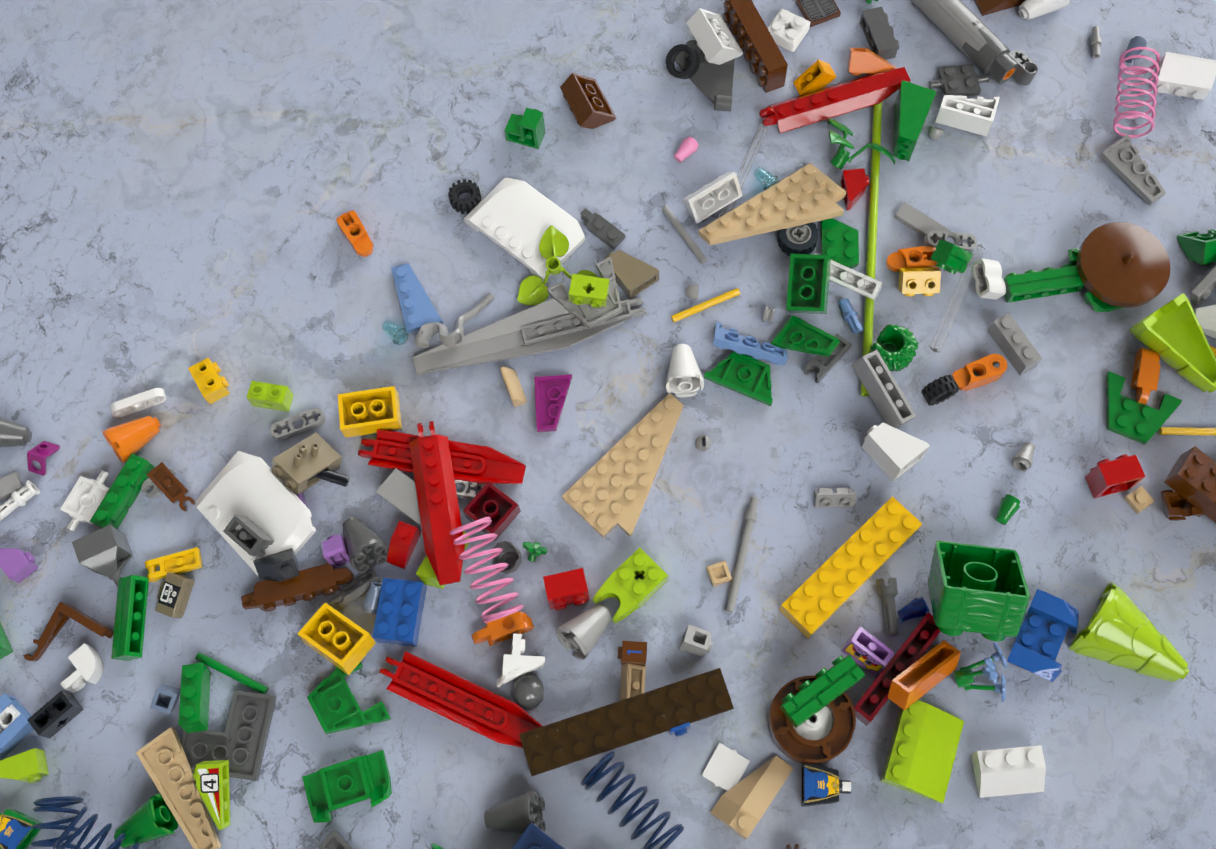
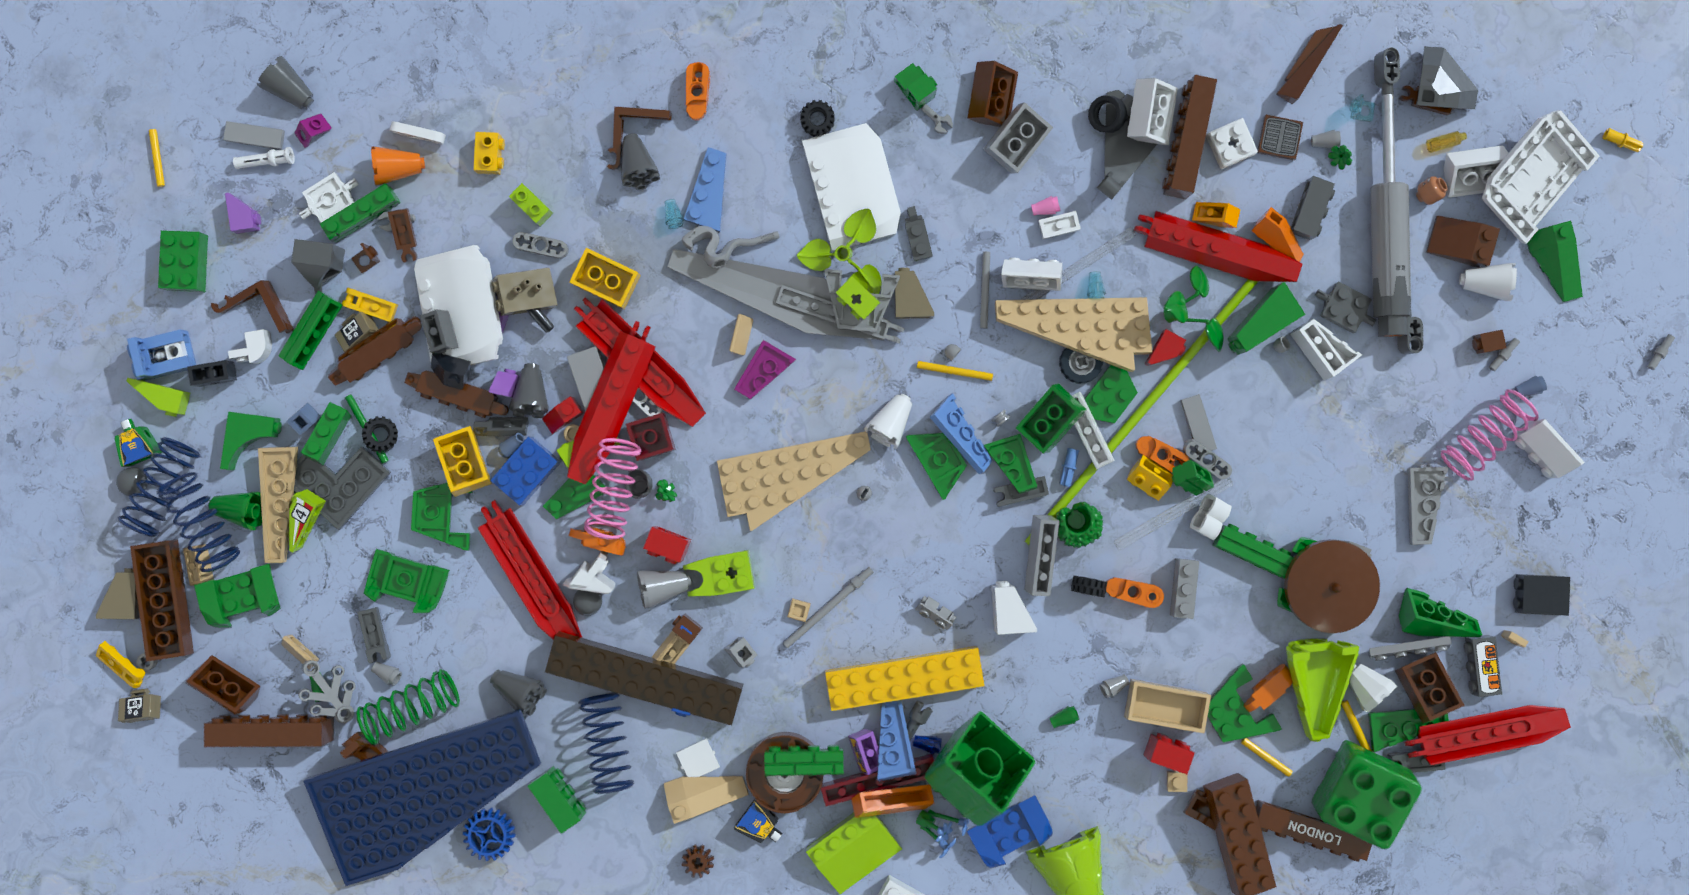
camera: 30 degrees right, 20 degrees up
(114, 748) = (244, 430): none -> green arch
(150, 521) = (371, 253): none -> reddish brown bracket
(198, 598) = (374, 349): none -> reddish brown hinge
(246, 656) = (375, 423): none -> black tyre
(315, 278) = (620, 112): none -> reddish brown hinge
(342, 312) = (637, 165): none -> dark grey cone
(419, 555) = (570, 432): none -> tan tile
(455, 606) = (571, 497): none -> green wing
(560, 144) = (937, 119): none -> light grey bar
(629, 114) = (1018, 138): none -> light grey brick
(705, 155) = (1059, 225): none -> white plate
(889, 626) = (895, 747): none -> medium blue wing
(1078, 39) = (1489, 341): none -> reddish brown brick
(1080, 440) = (1167, 706): none -> tan piece

